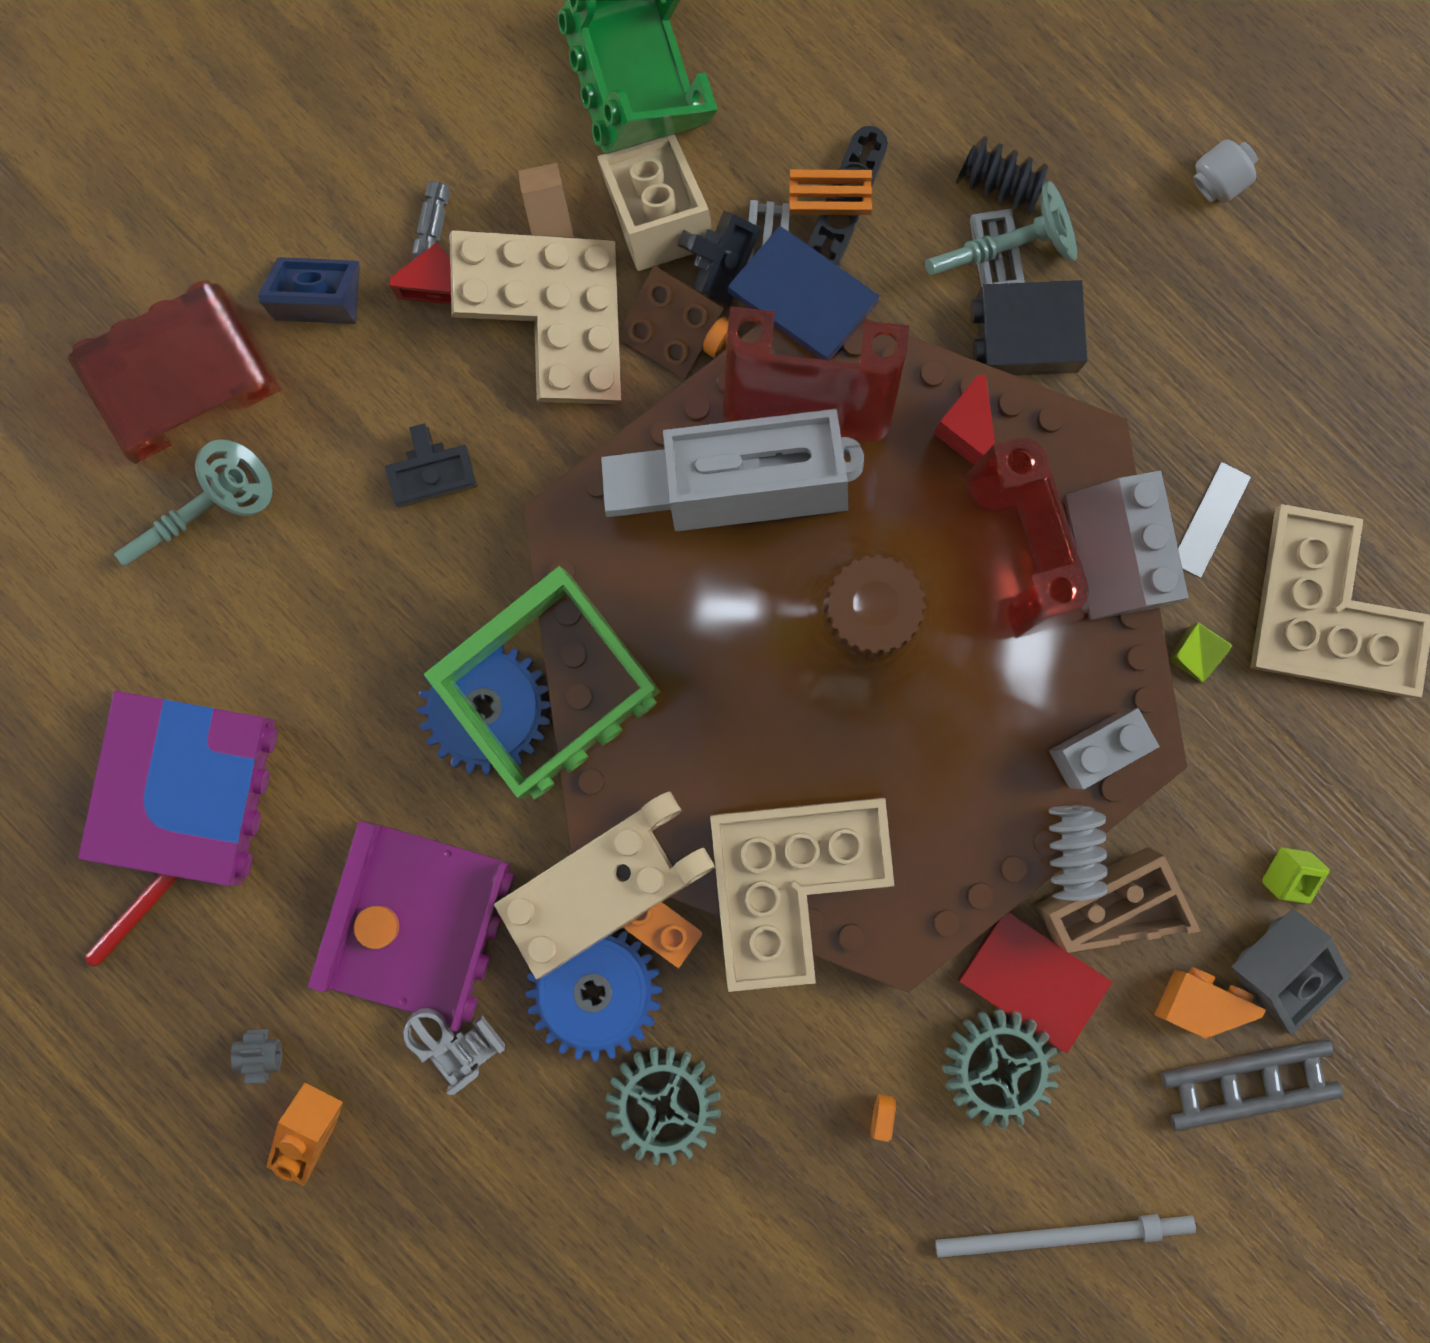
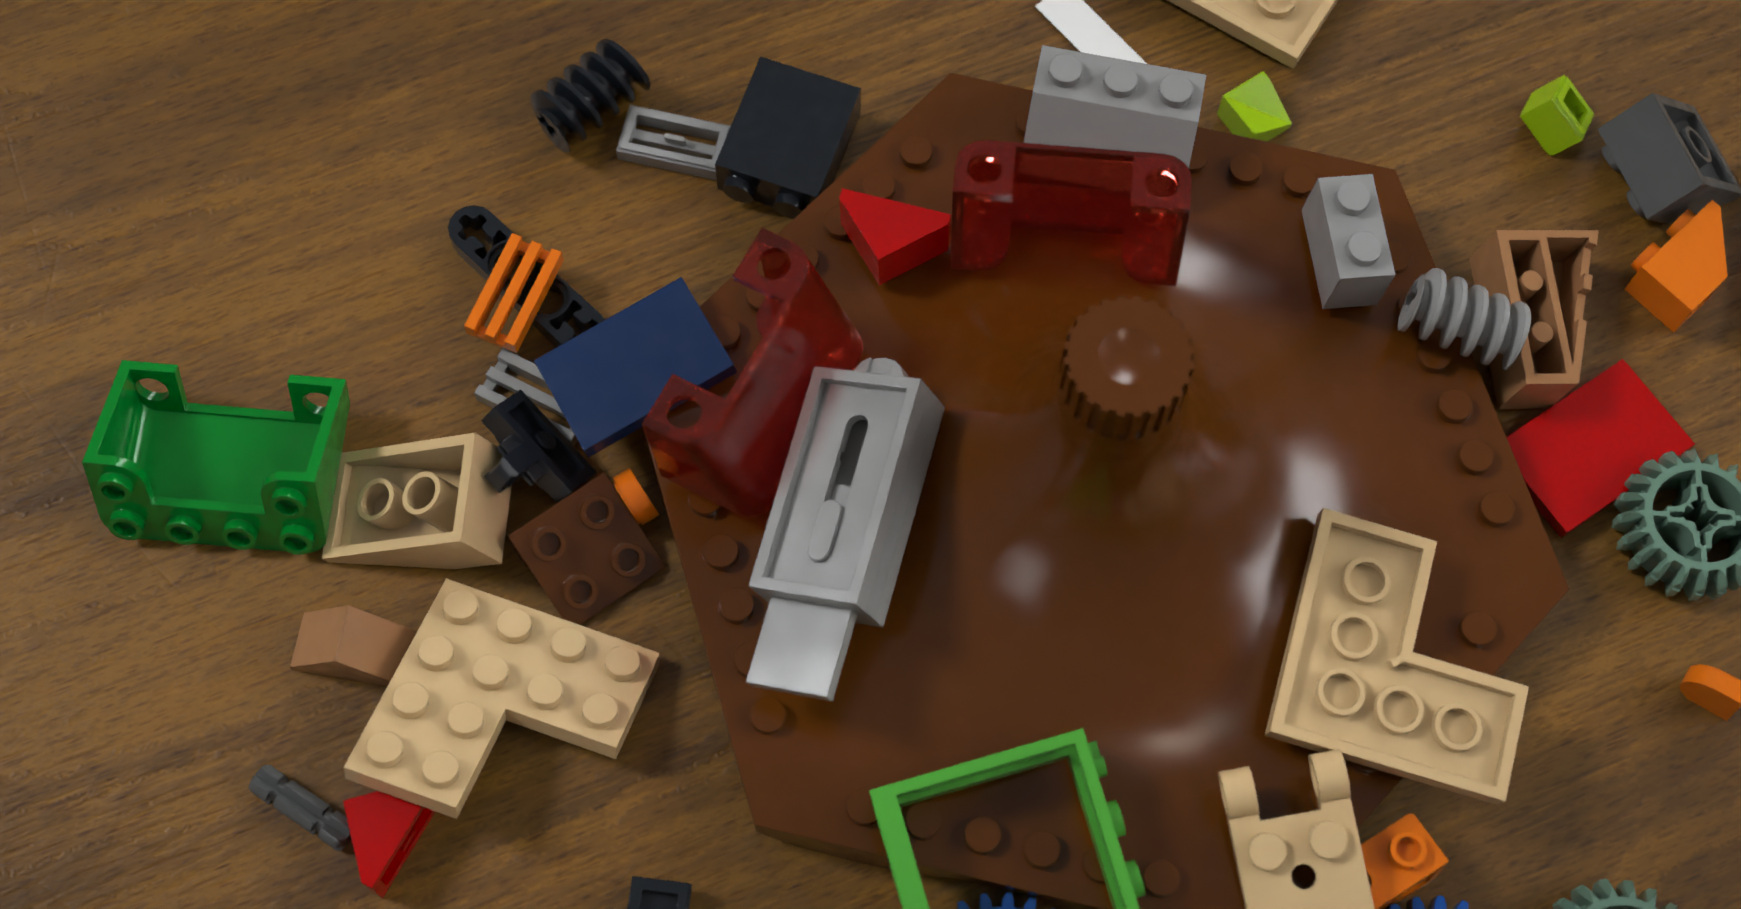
camera: 70 degrees left, 15 degrees down
(1052, 225) = (669, 146): sand green dish -> none

